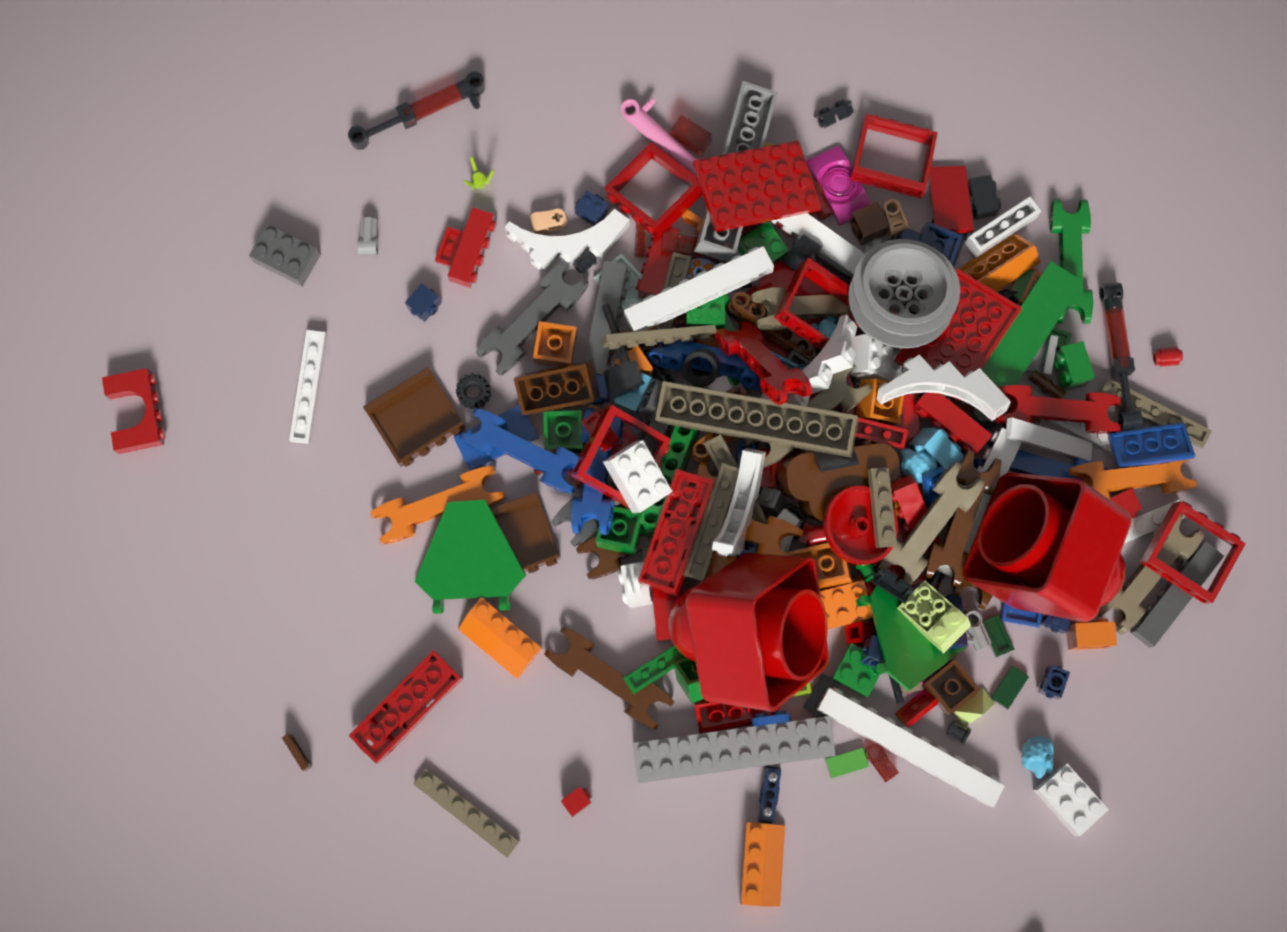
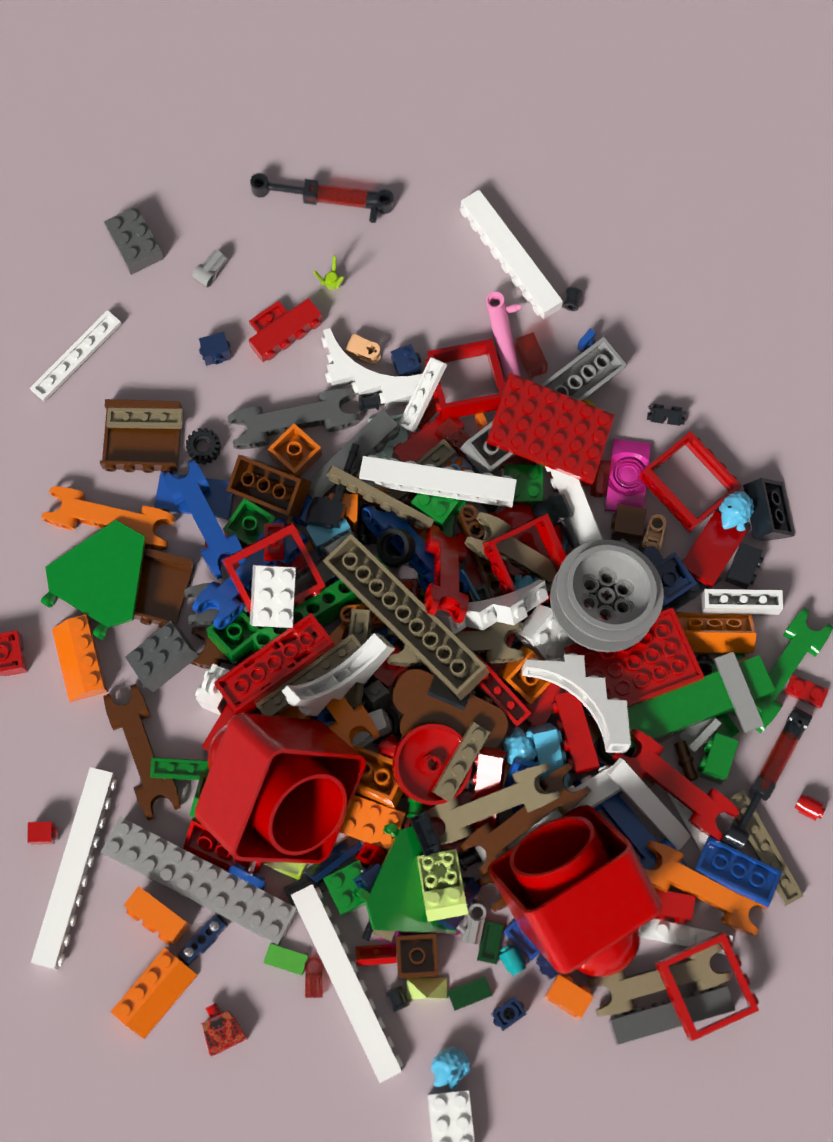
camera: 35 degrees right, 5 degrees down
(407, 400) = (145, 418): none -> dark tan plate
(570, 589) = (161, 656): none -> dark grey brick
(613, 60) = (511, 255): none -> white brick
(624, 814) = (73, 869): none -> white brick
(628, 226) = (422, 394): none -> white tile
(690, 66) = (572, 298): none -> black bush
(722, 802) = (156, 917): none -> orange brick
(728, 93) = (587, 340): none -> blue plate
(834, 641) = (338, 856): none -> dark blue tile
(838, 855) = (221, 1030): none -> torso
(949, 155) = (736, 510): none -> medium azure animal
(969, 138) = (771, 511): none -> black slope
(1024, 637) = (512, 959): none -> teal brick
(1057, 302) = (738, 692): none -> light grey tile
(1101, 266) = (806, 691): none -> red plate

